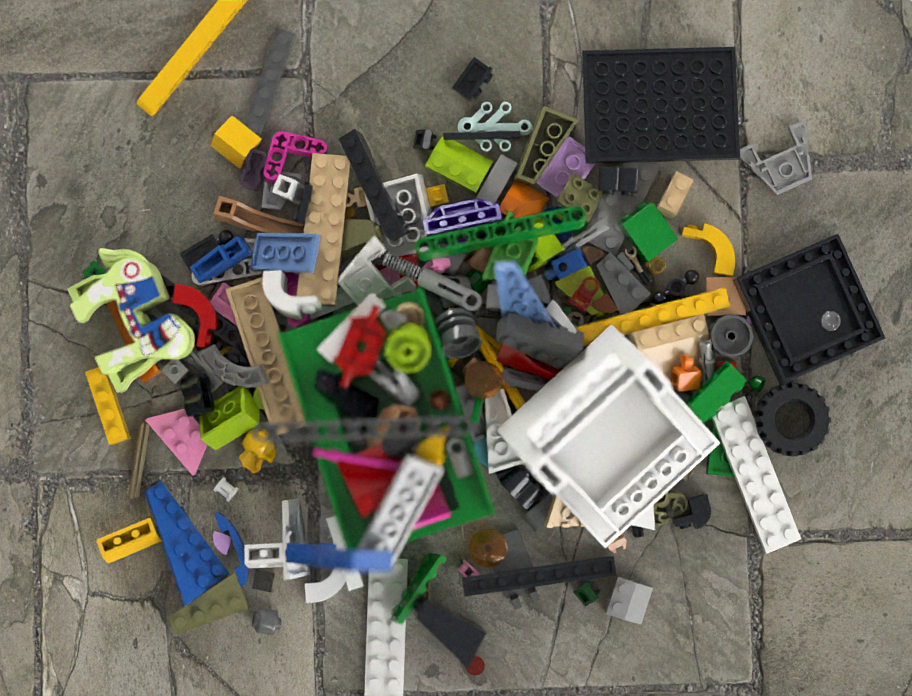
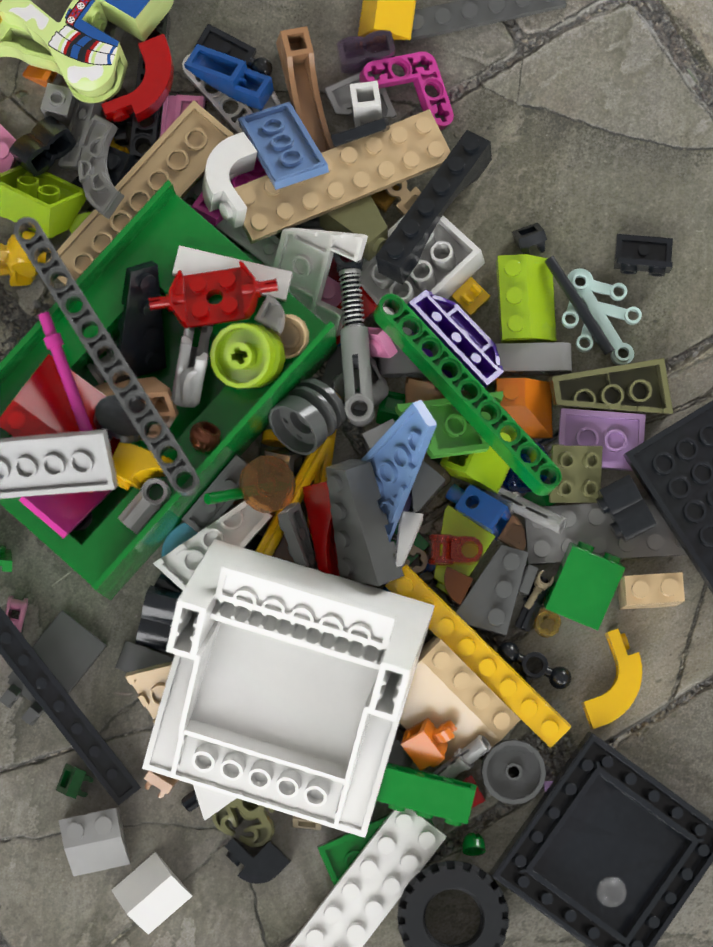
camera: 60 degrees right, 5 degrees down
(498, 544) = (64, 634): clear orange dish -> none
(676, 585) = (151, 893): none -> white slope
(735, 302) = (561, 751): light nougat tile -> none

